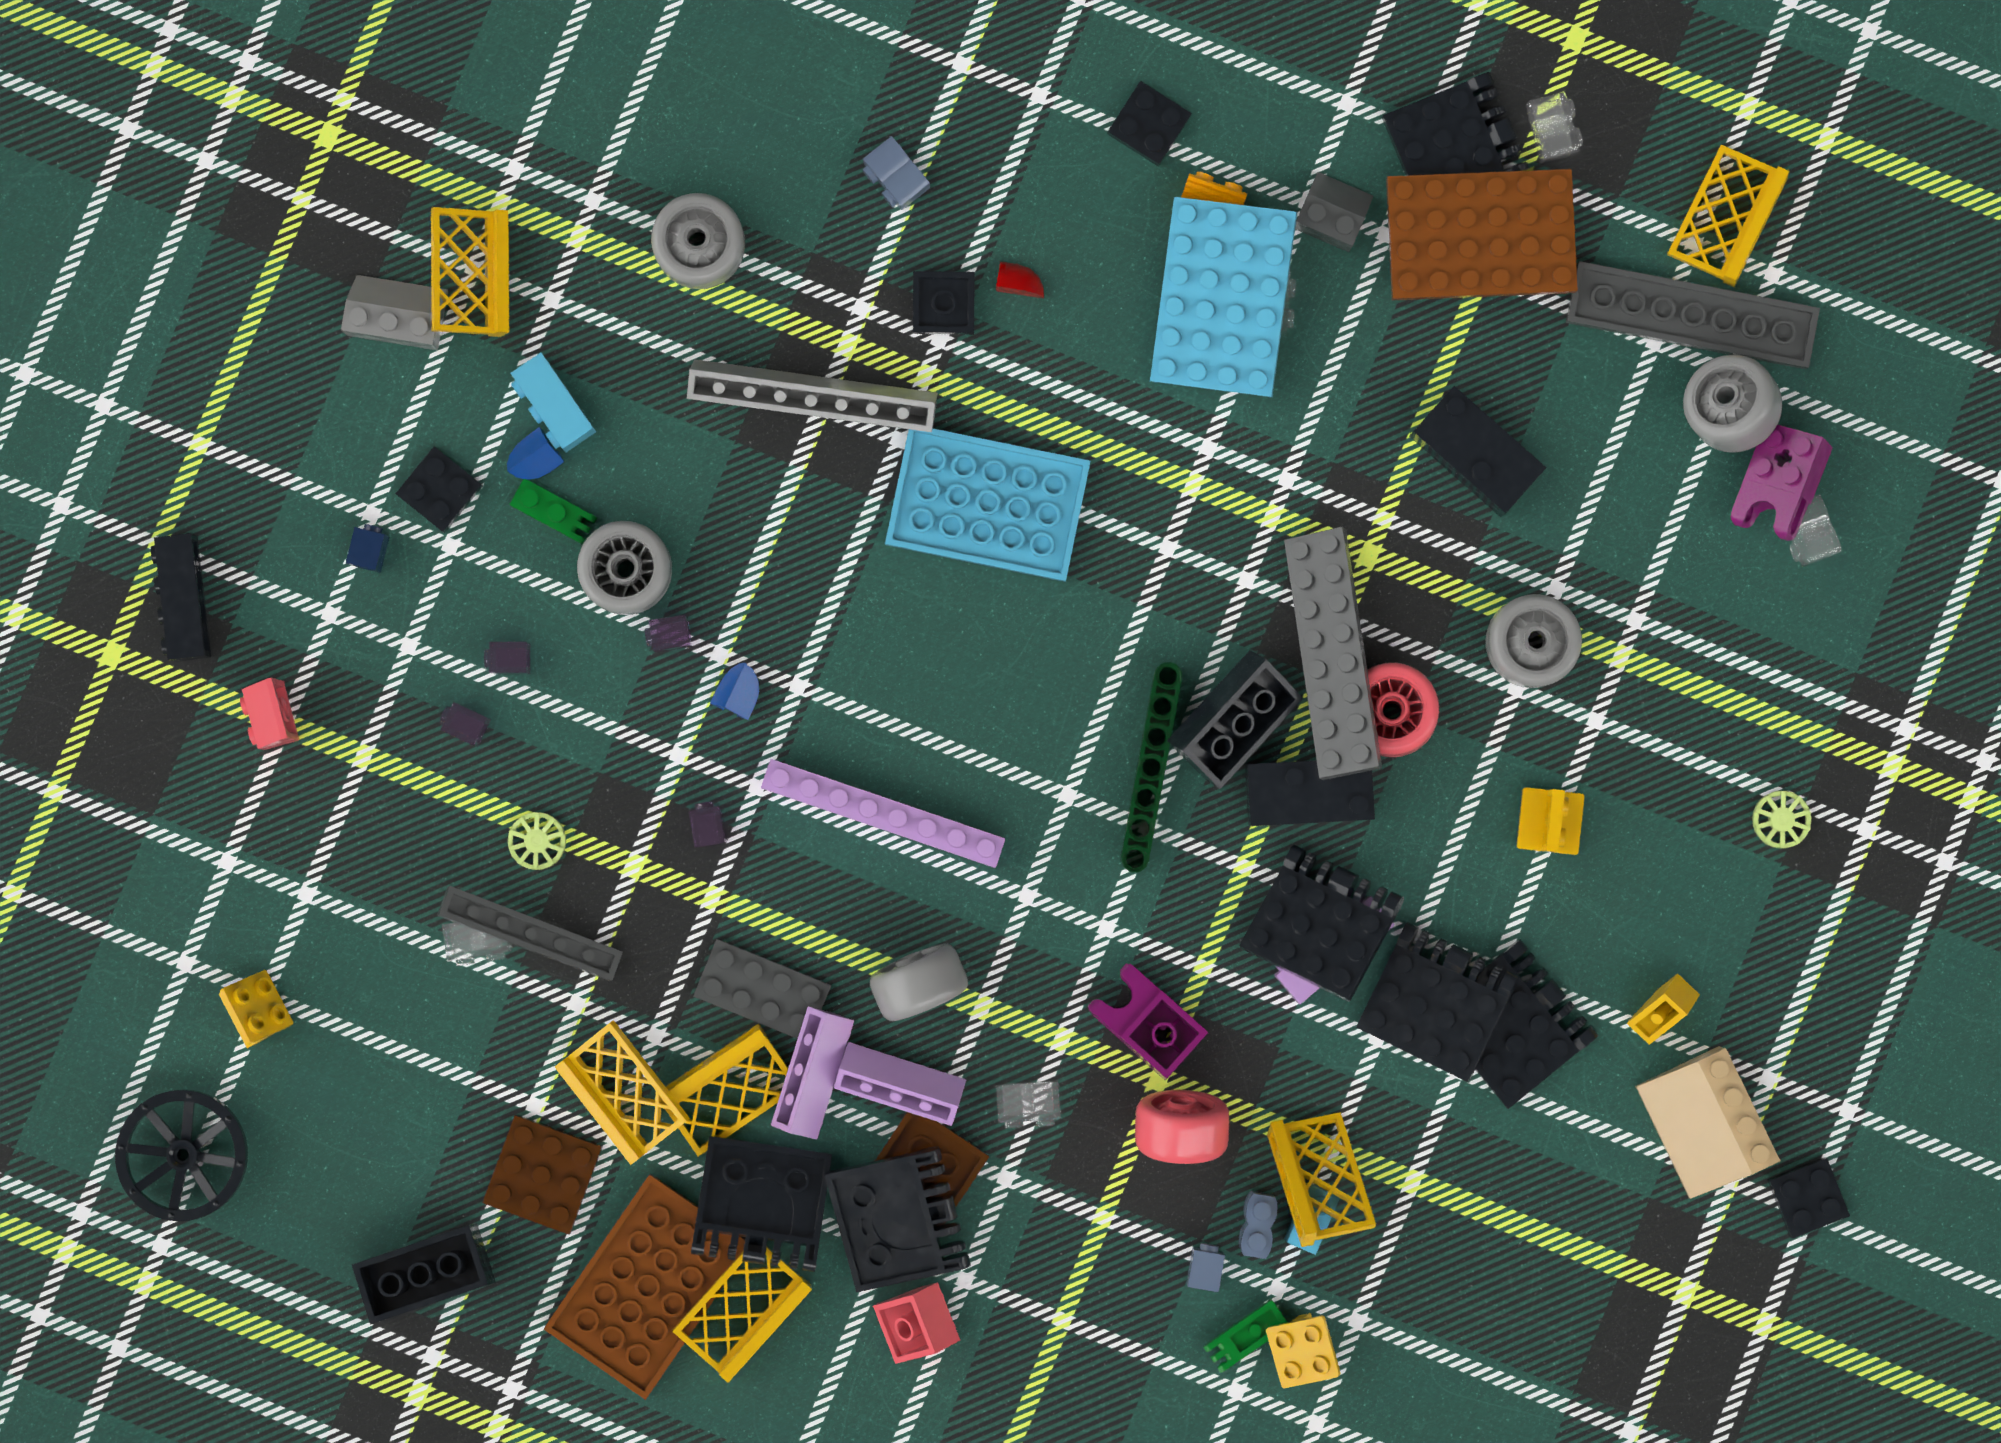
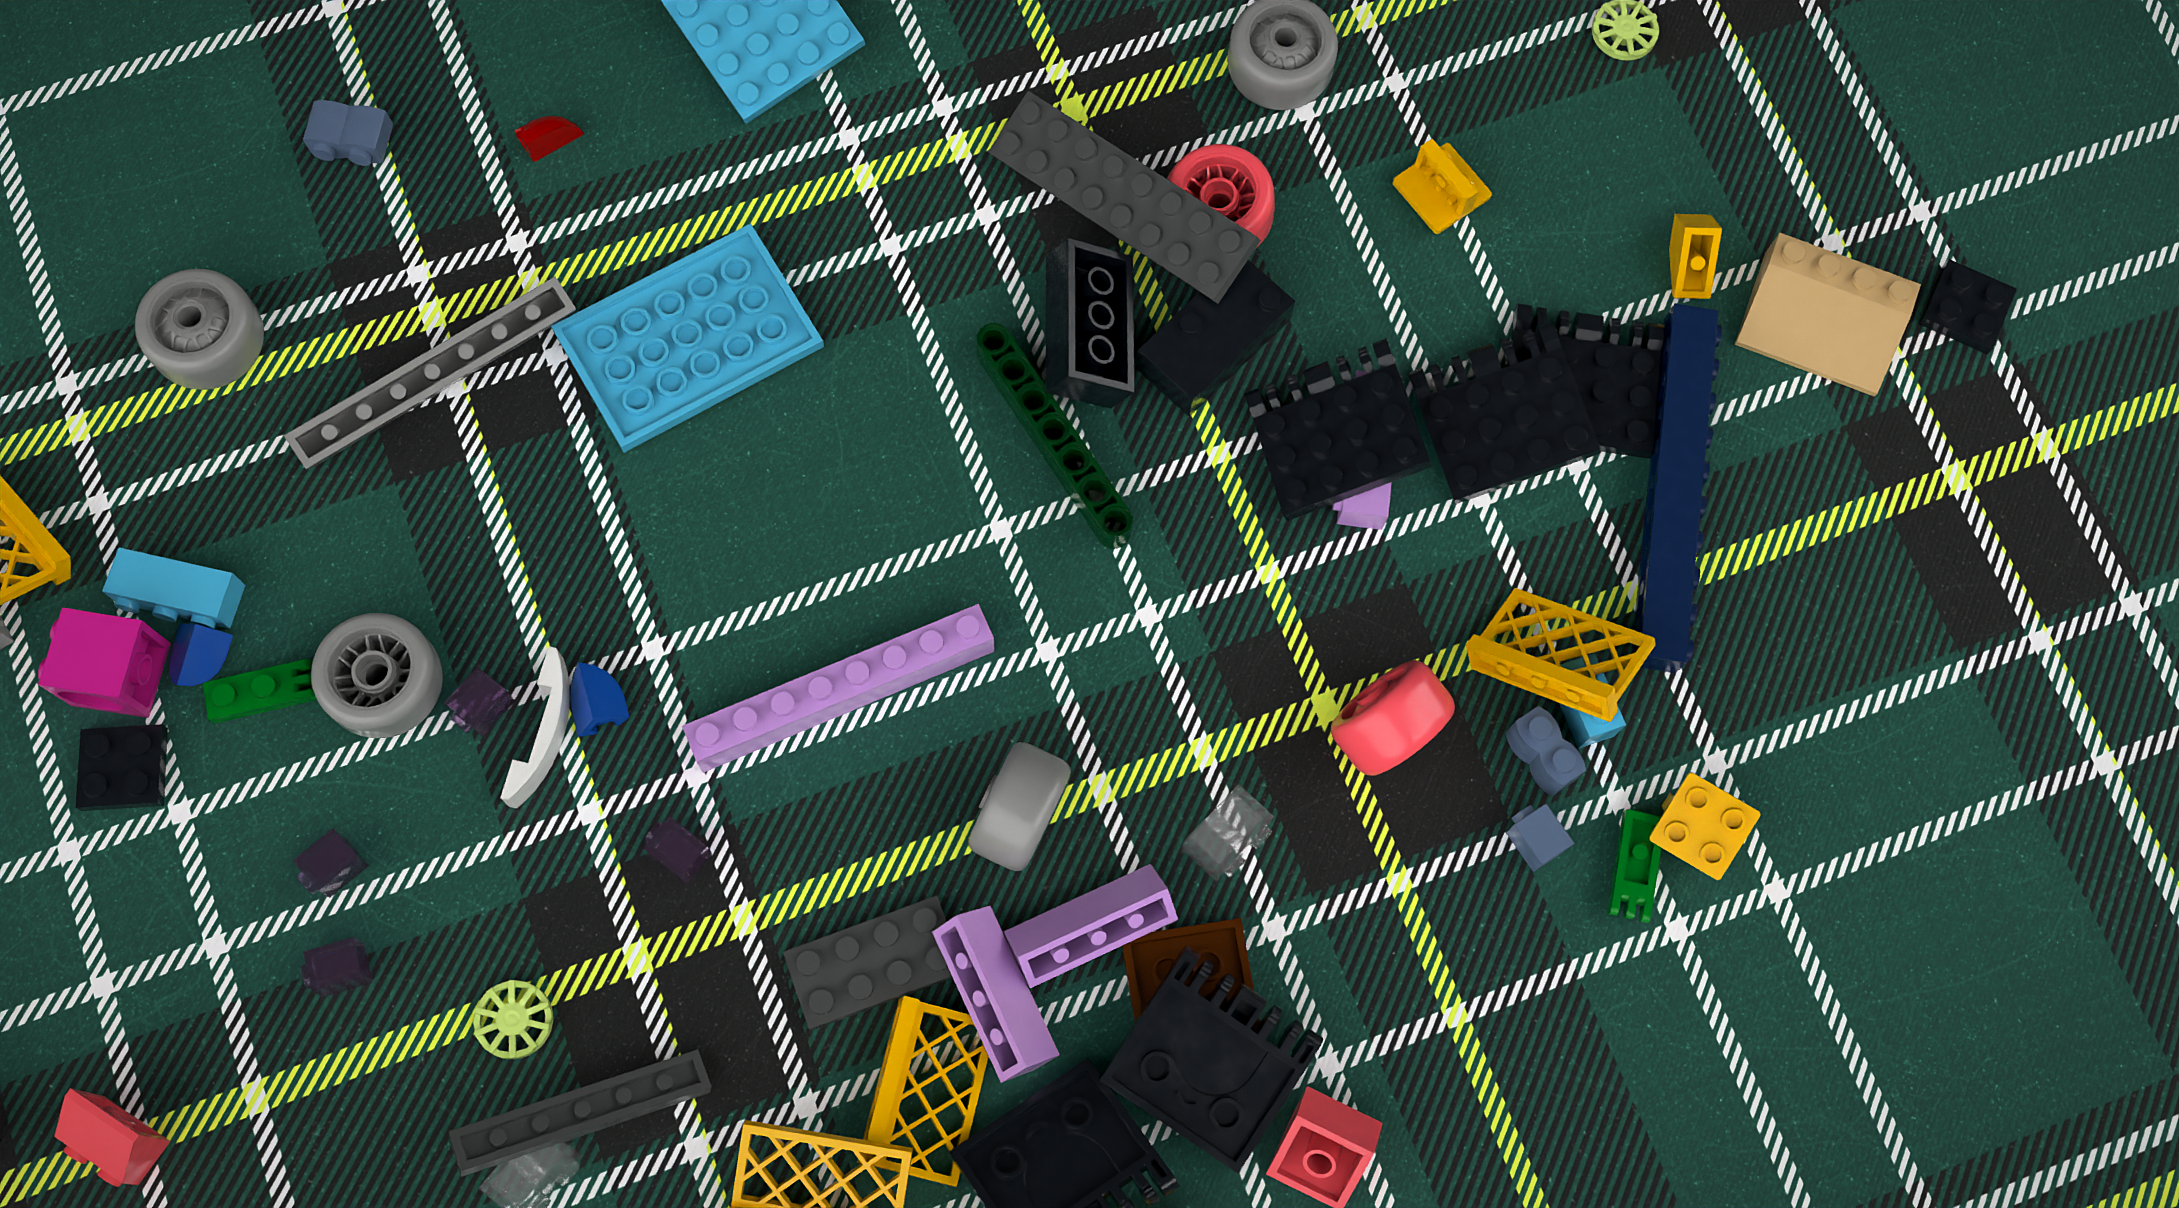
camera: 45 degrees left, 15 degrees down
(368, 548) = (88, 884): dark blue brick -> none
(476, 421) = (104, 662): none -> dark pink brick
(658, 703) = (526, 777): none -> white slope
(943, 302) = (491, 203): black plate -> none
(1146, 1013) = (1261, 657): magenta brick -> none
(1501, 1140) = (1675, 486): none -> dark blue brick

